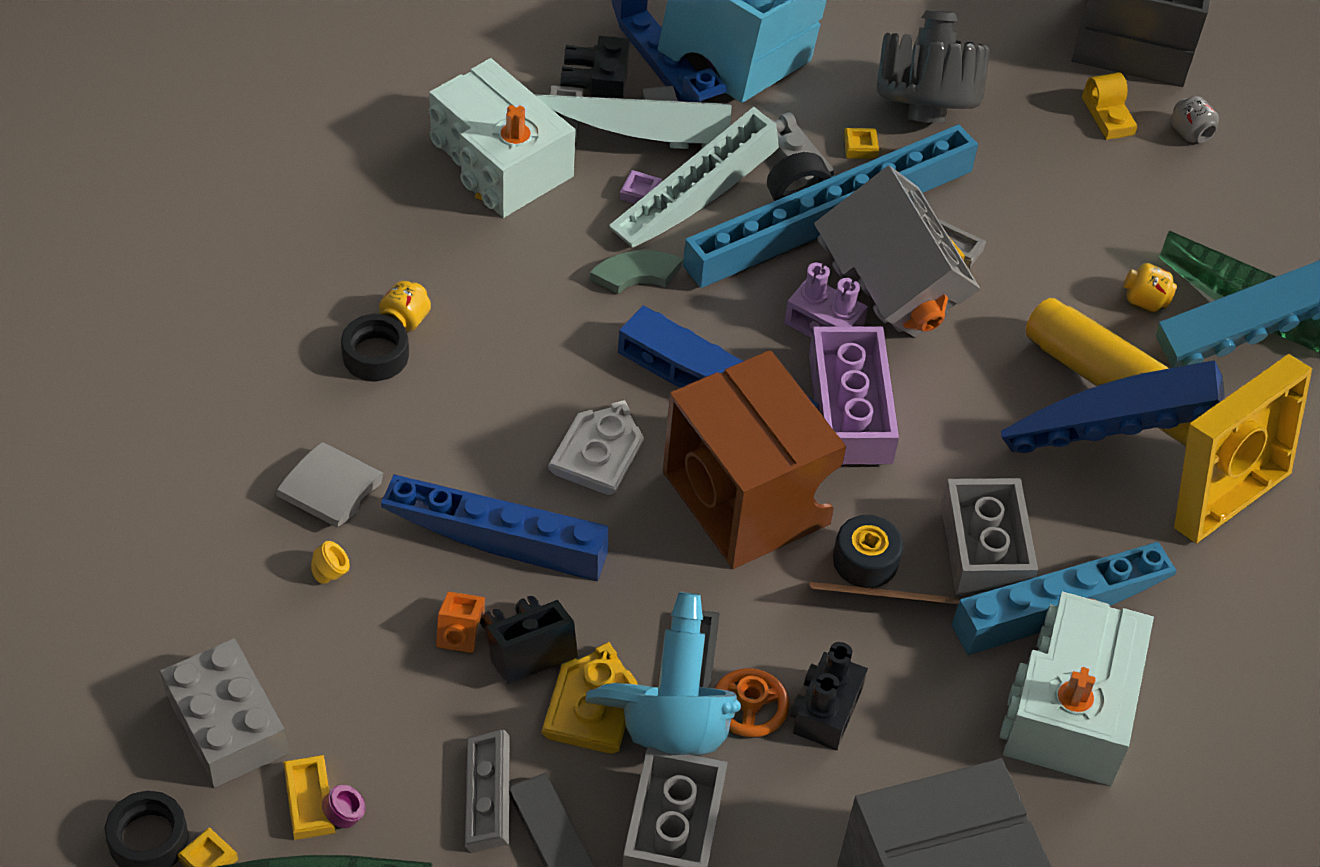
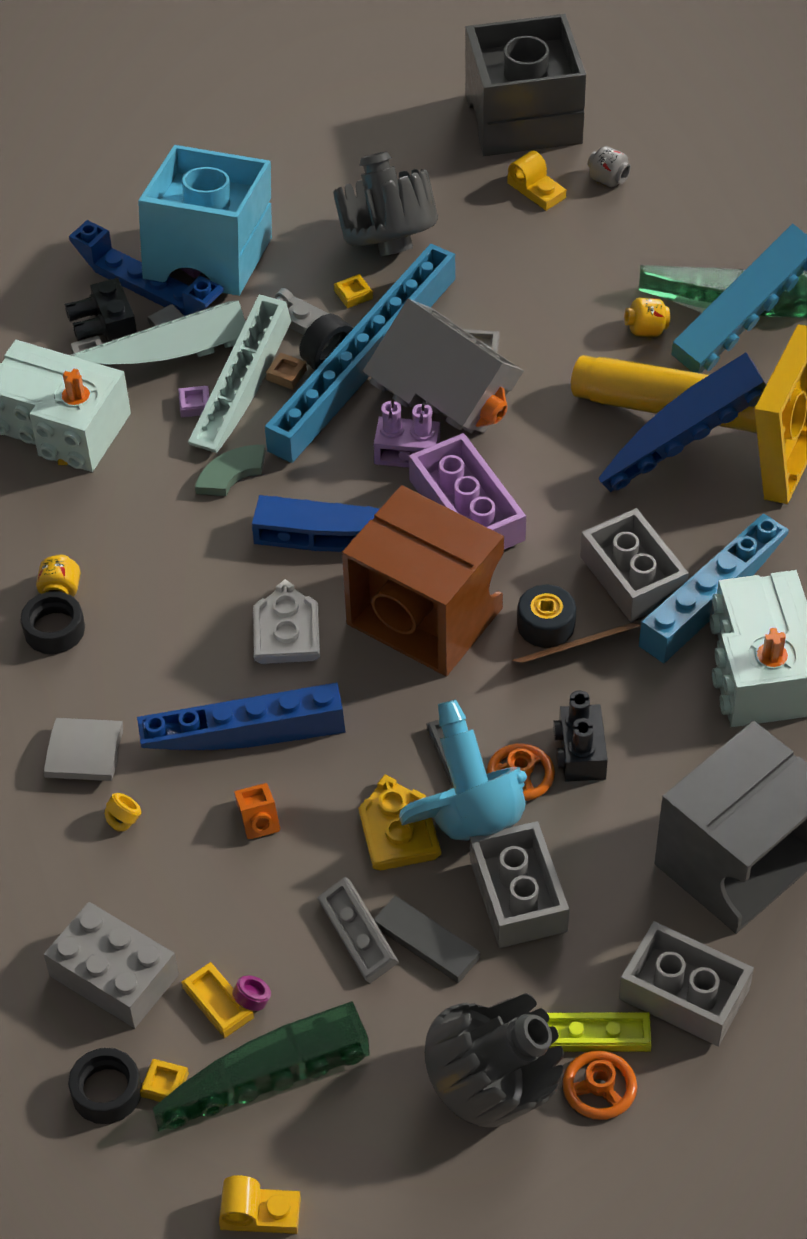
camera: 20 degrees left, 0 degrees up
(531, 639) = (324, 799): black brick -> none
(746, 194) = (286, 370): none -> medium nougat plate

